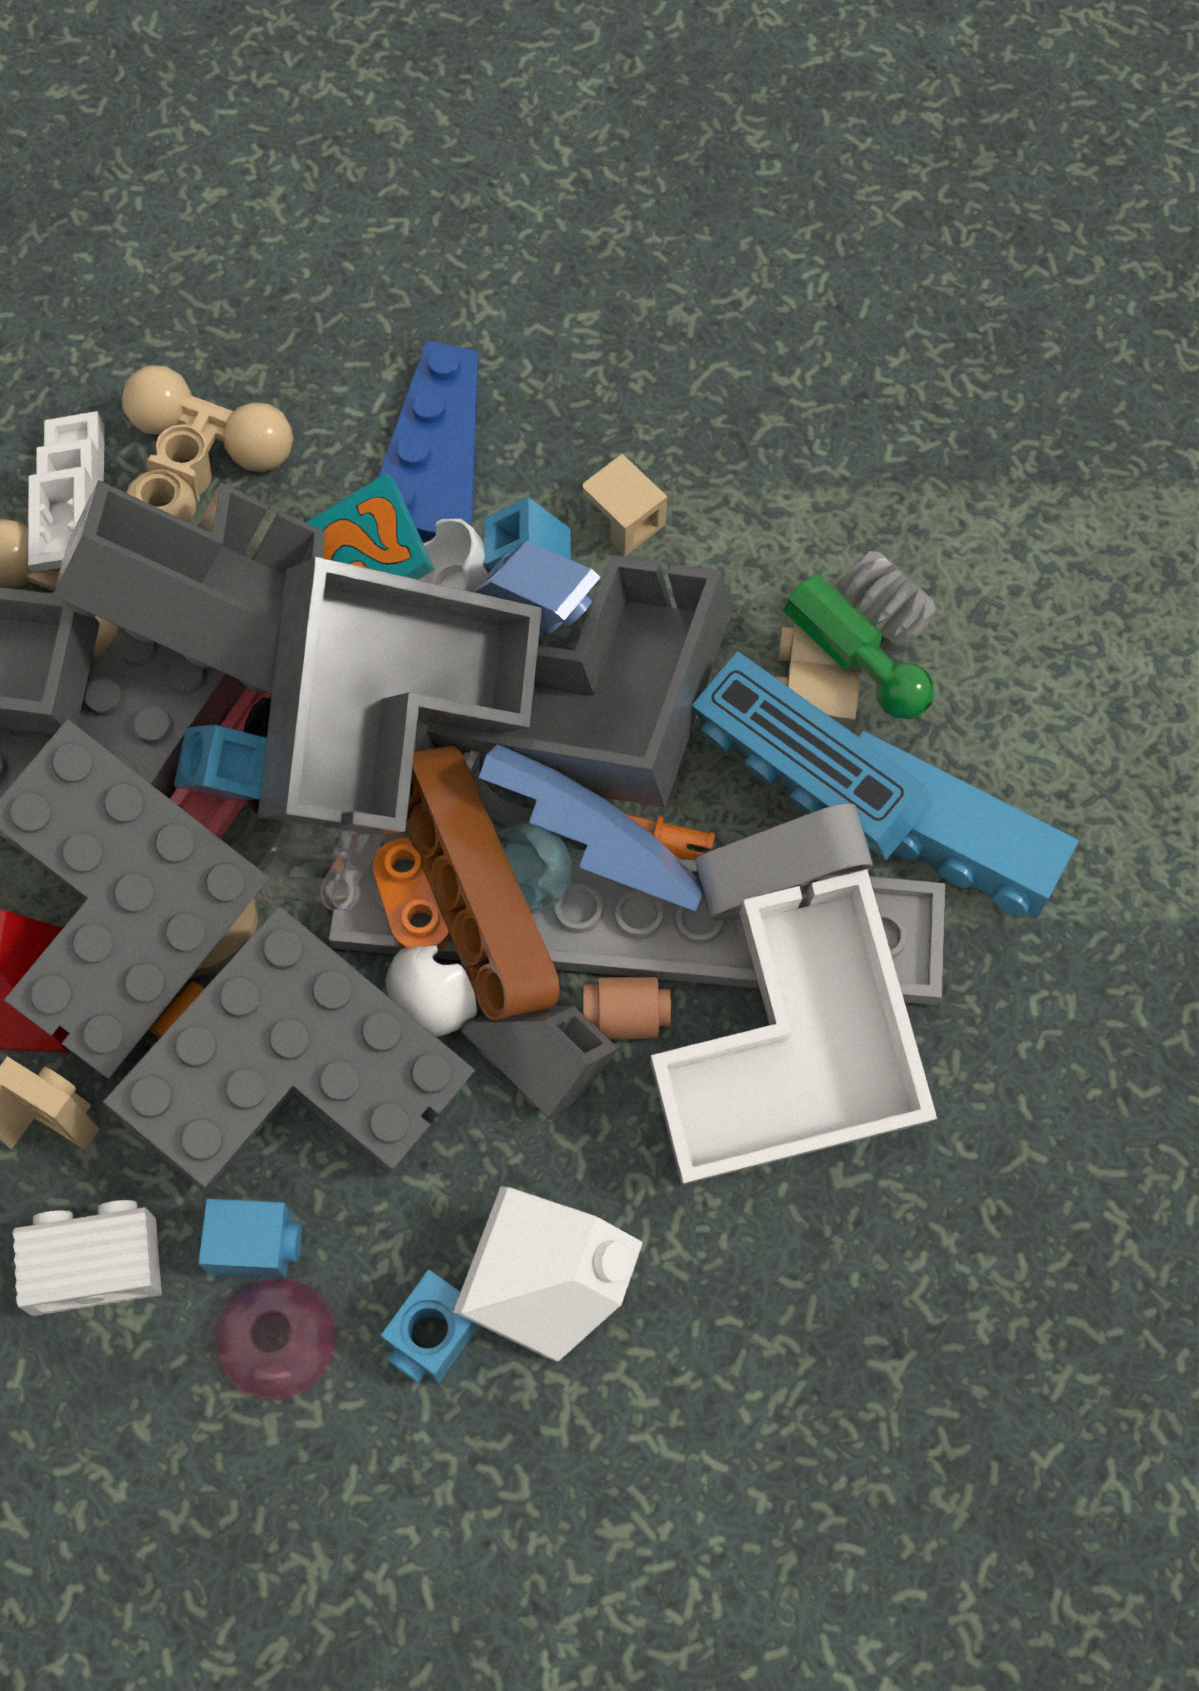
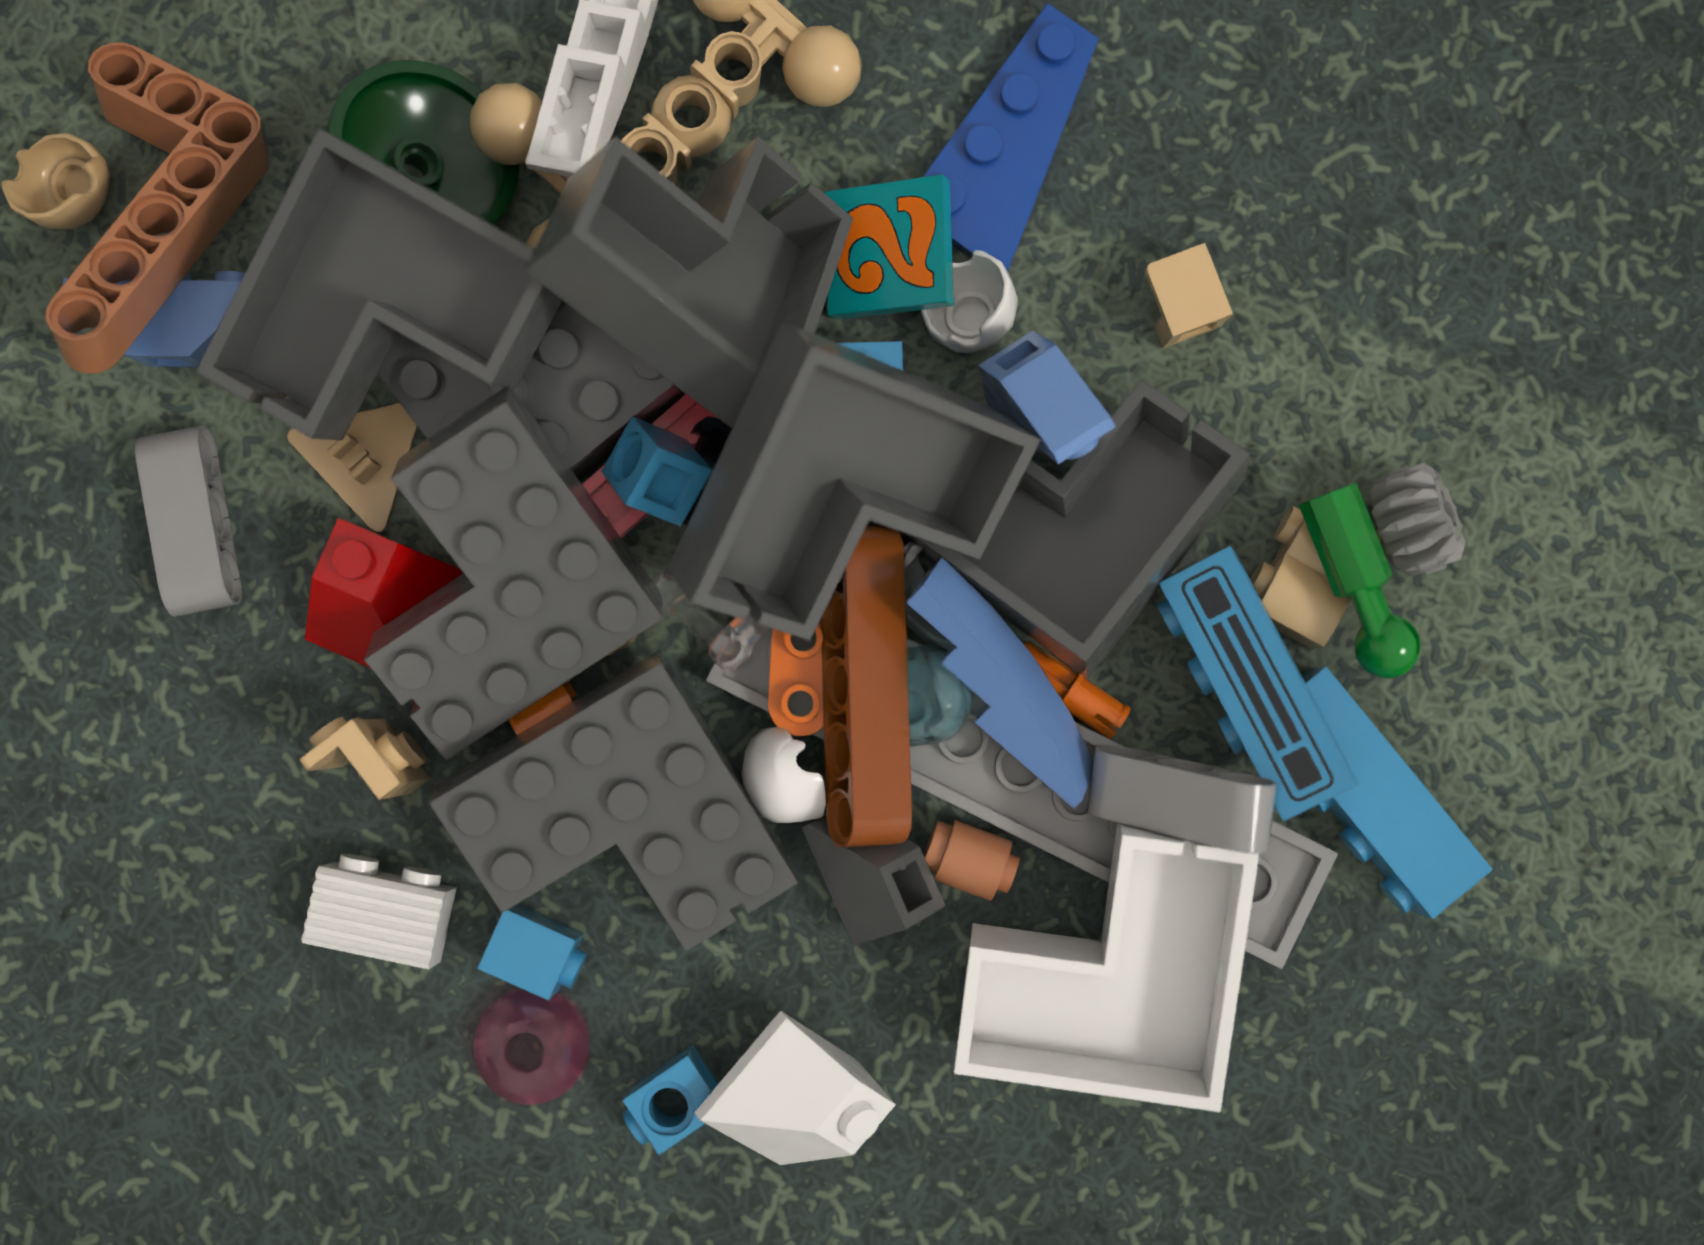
camera: 25 degrees right, 20 degrees up
(520, 523) = (1064, 310): dark azure brick -> none

